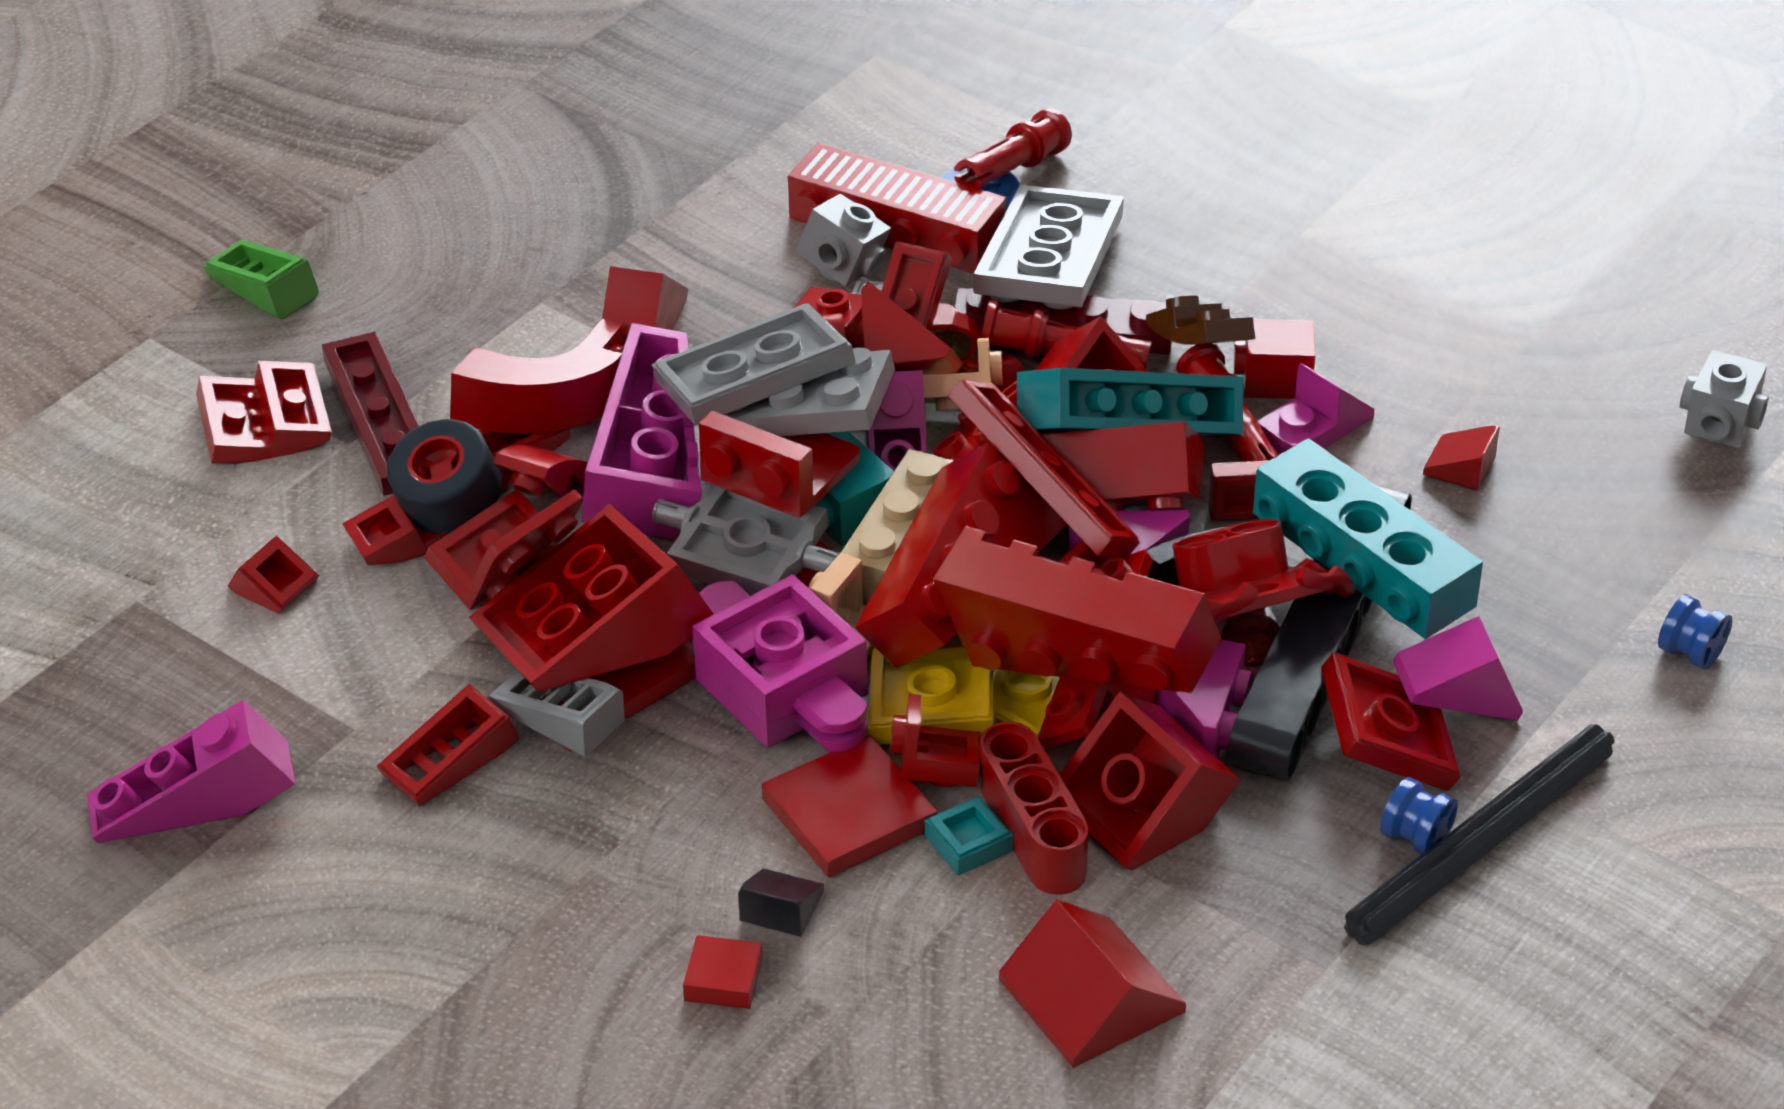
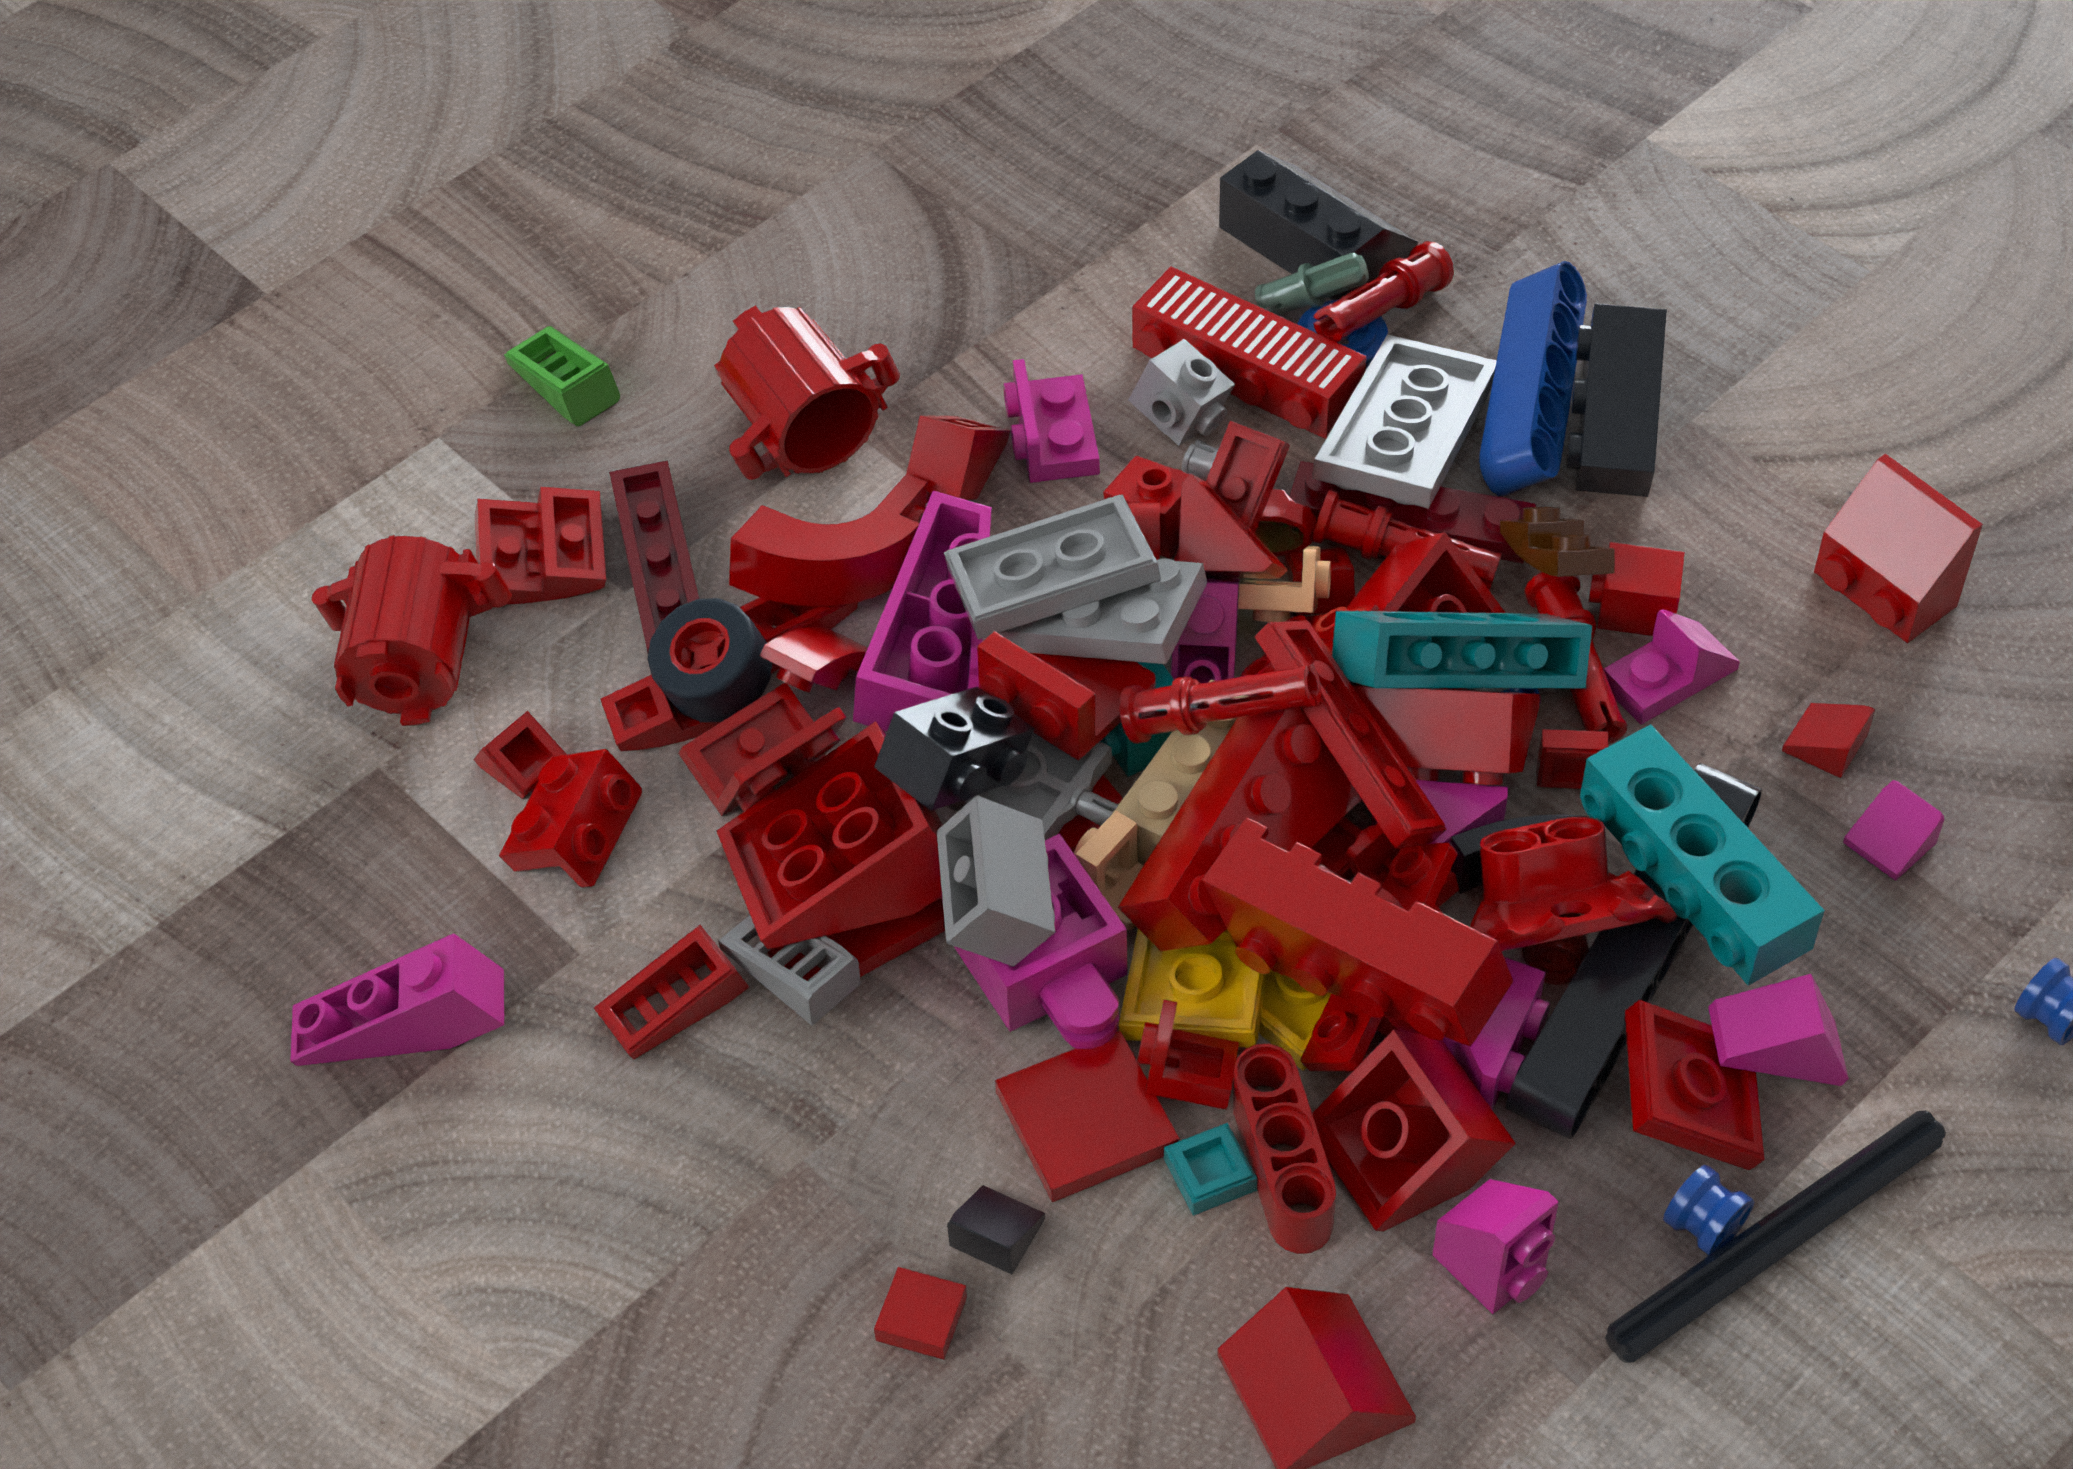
camera: 10 degrees right, 10 degrees up
(151, 472) = (406, 623): none -> red container
(332, 615) = (573, 816): none -> red bracket
(492, 265) = (800, 392): none -> red container
(689, 507) = (954, 747): none -> black brick
(725, 280) = (1053, 425): none -> dark pink bracket
(744, 603) = (995, 881): none -> light grey brick
(894, 456) = (1188, 701): none -> red pin
(929, 107) = (1301, 219): none -> black slope
(950, 147) = (1312, 284): none -> sand green axle
(1157, 207) = (1533, 380): none -> blue beam
(1235, 213) = (1618, 399): none -> black wedge
(1238, 854) = (1498, 1242): none -> dark pink slope
(1500, 304) = (1898, 550): none -> slope
(1533, 520) = (1895, 830): none -> dark pink slope

